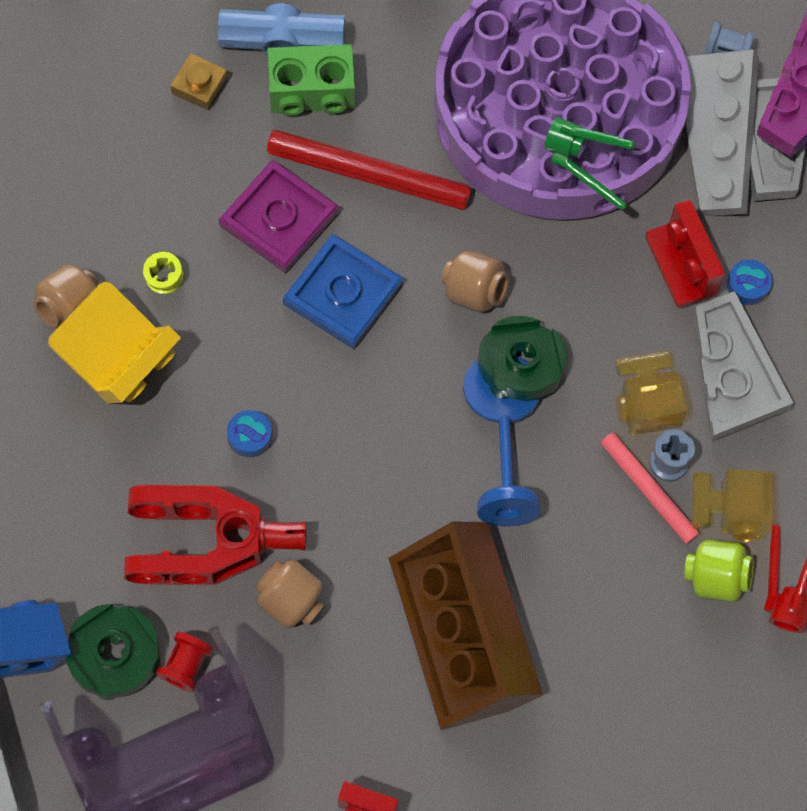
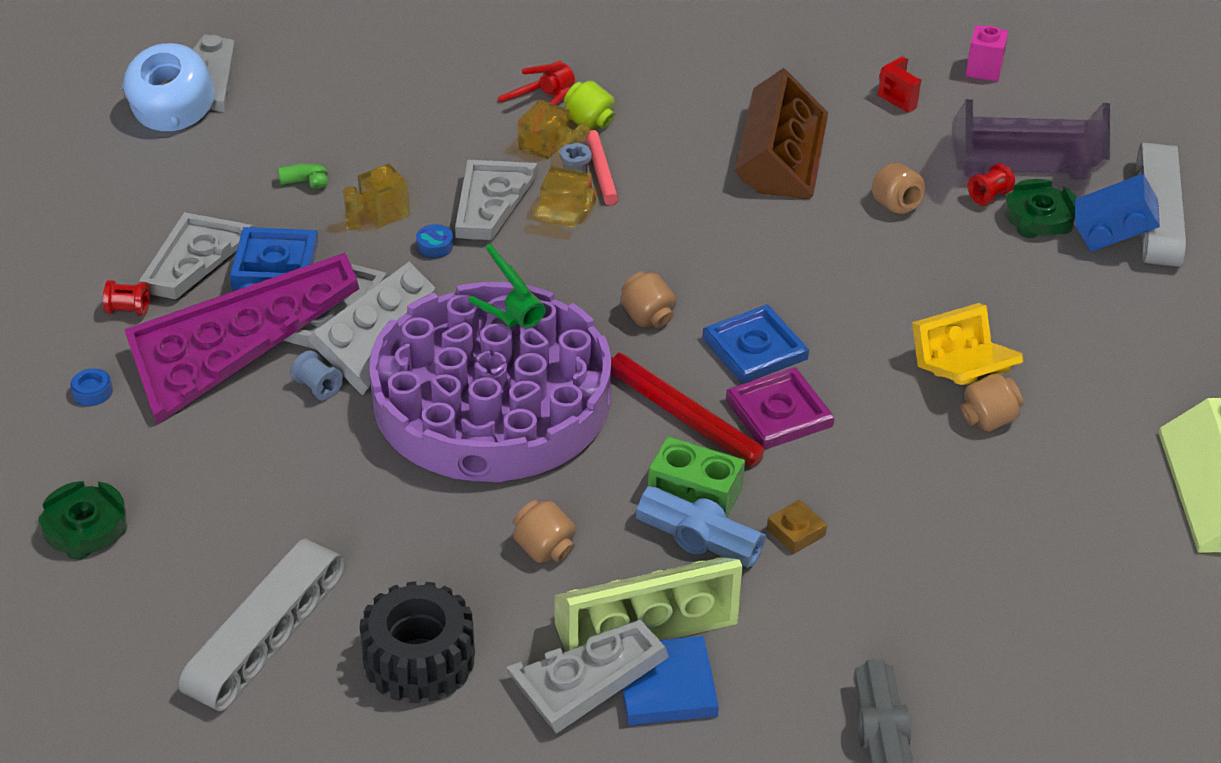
camera: 150 degrees left, 25 degrees down
(175, 278) = (897, 412): neon yellow bush -> none
(206, 503) = (923, 223): red piece -> none
(249, 433) = (879, 286): blue tile -> none
(507, 503) = (675, 248): blue piece -> none
(515, 380) = (645, 229): dark green plate -> none
(686, 256) = (470, 258): red bracket -> none

